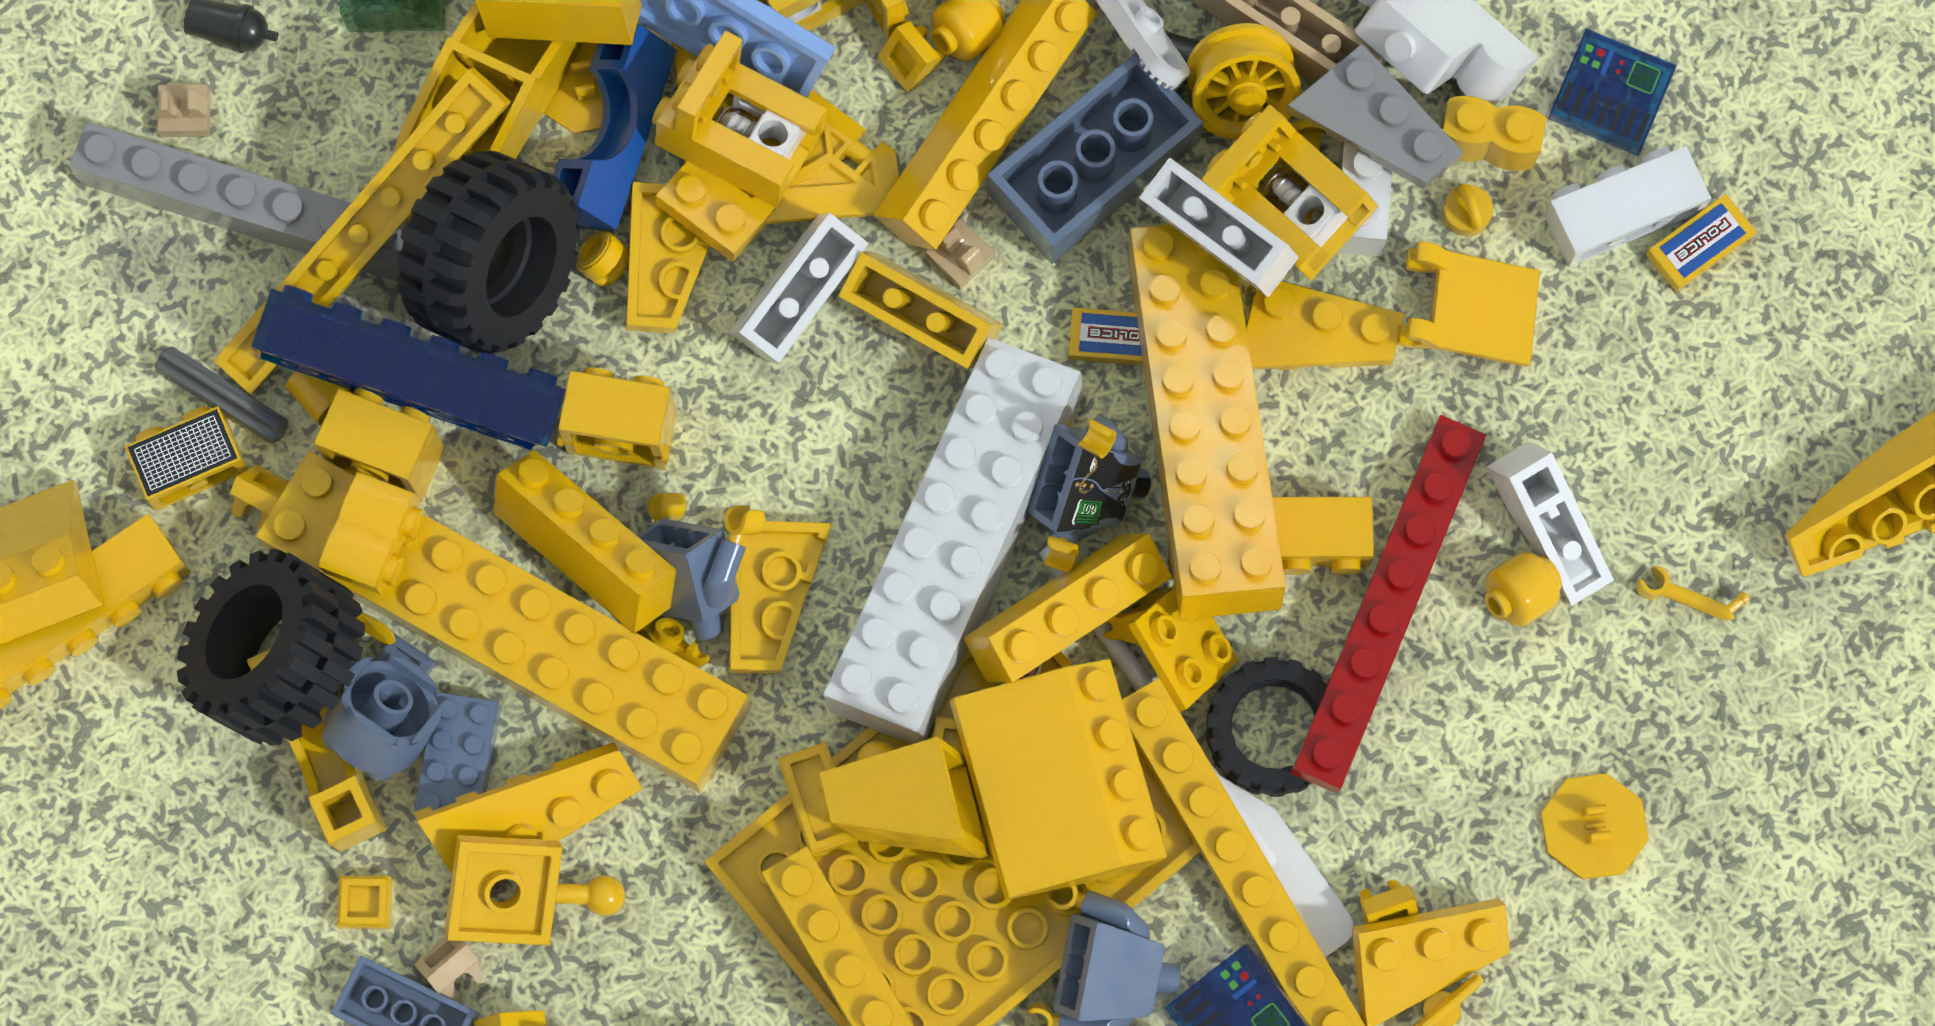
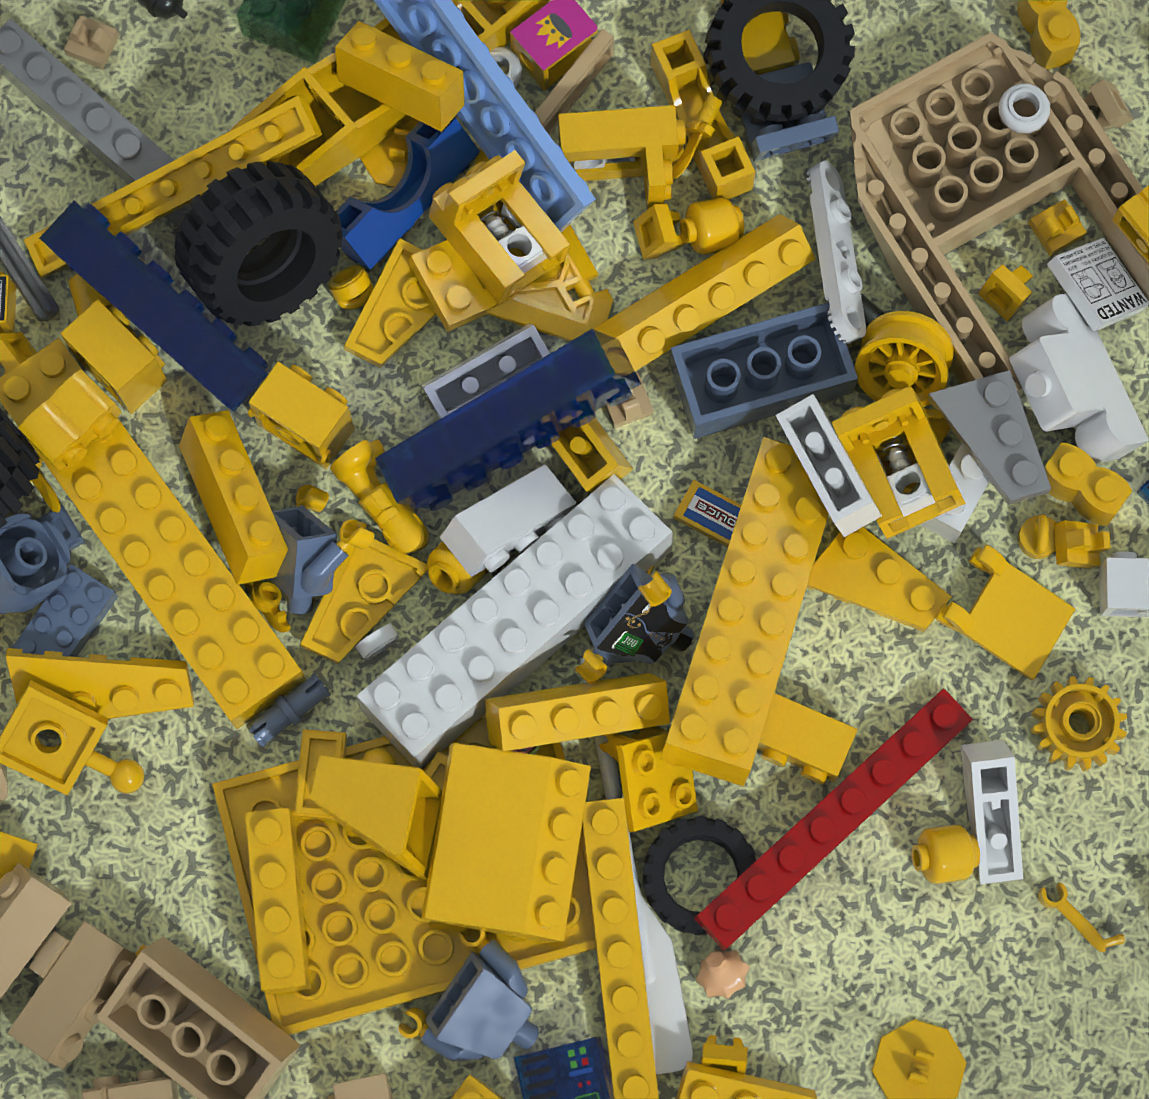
camera: 25 degrees right, 0 degrees up
(748, 746) = (288, 710): none -> sand blue pin
(749, 477) = (397, 521): none -> yellow piece
(812, 630) = (377, 642): none -> white tile
(853, 328) = (509, 421): none -> clear blue brick
(861, 507) = (448, 573): none -> yellow head
(897, 437) = (507, 521): none -> white brick
(1345, 820) = (722, 973): none -> light nougat piece
(1514, 199) = (1079, 544): none -> yellow tile
(1614, 368) = (1095, 707): none -> yellow gear

